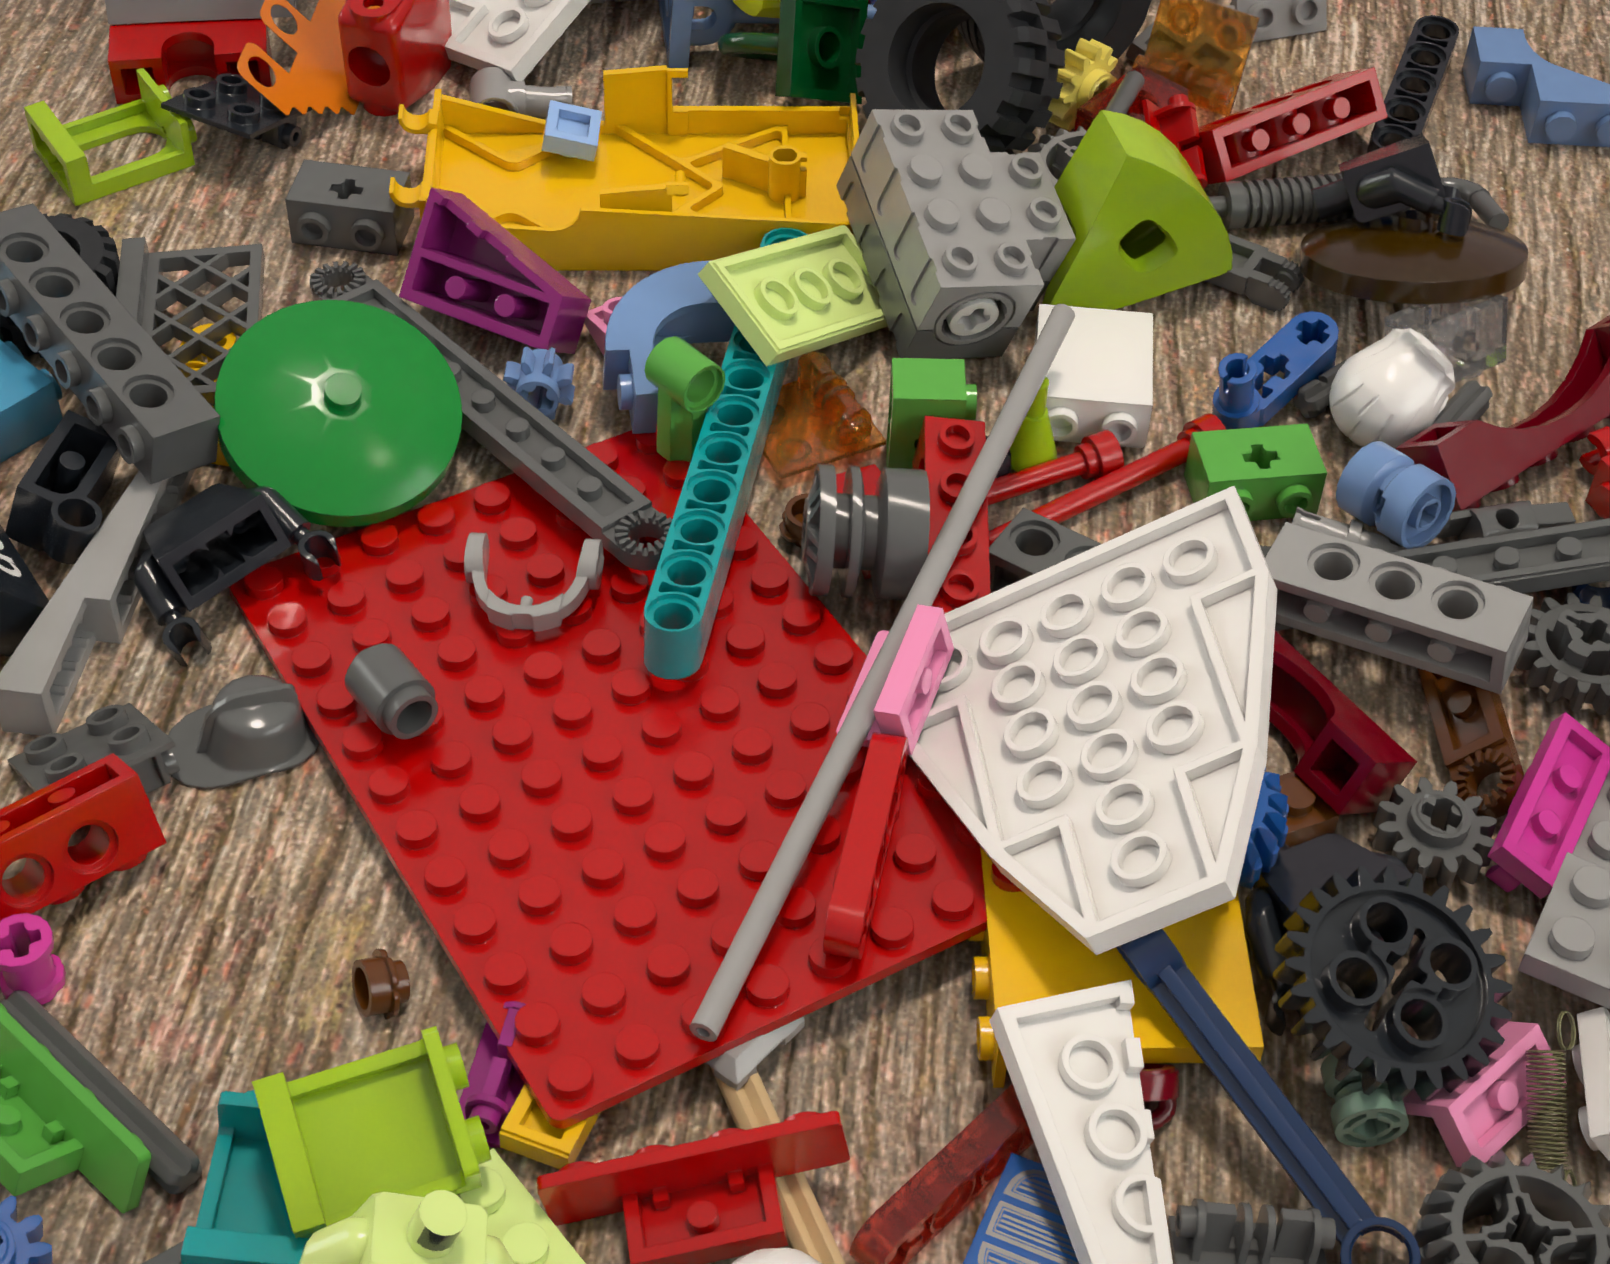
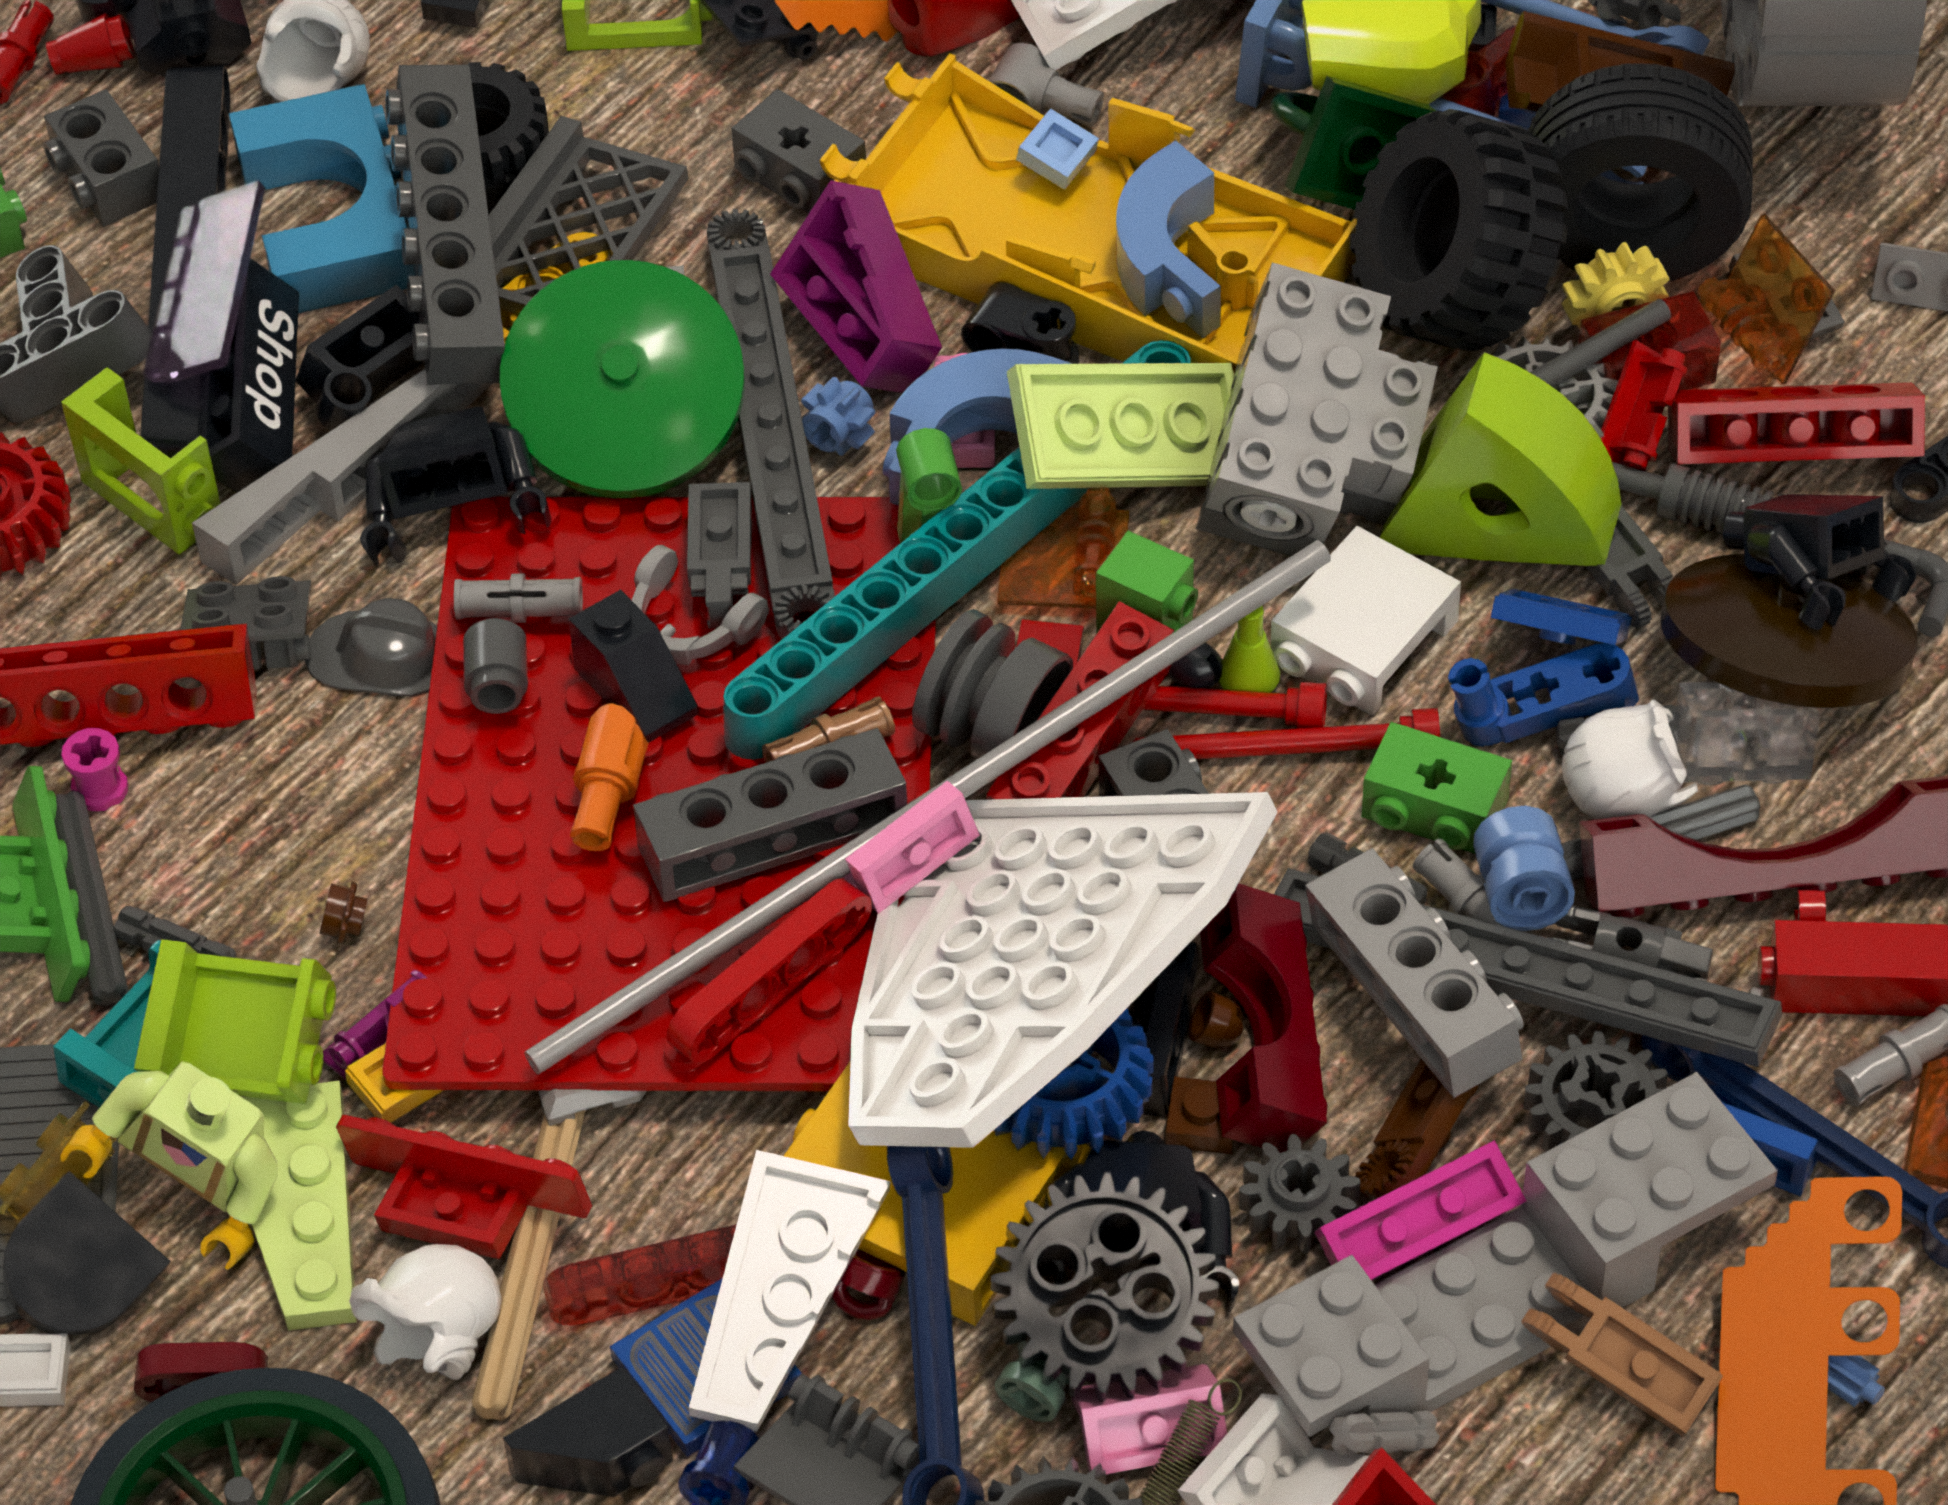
camera: 35 degrees right, 5 degrees up
(200, 1093) = (144, 929): none -> dark grey axle
(364, 629) = (518, 598): none -> light grey pin
(521, 517) = (719, 545): none -> dark grey hinge
(522, 641) = (630, 664): none -> black slope
(574, 739) = (606, 774): none -> orange arm
(626, 259) = (1023, 322): none -> black piece
(717, 177) = (1150, 216): none -> medium blue arch
(746, 631) = (828, 729): none -> medium nougat pin
(751, 712) = (768, 814): none -> dark grey brick
(1246, 312) = (1561, 619): none -> blue plate

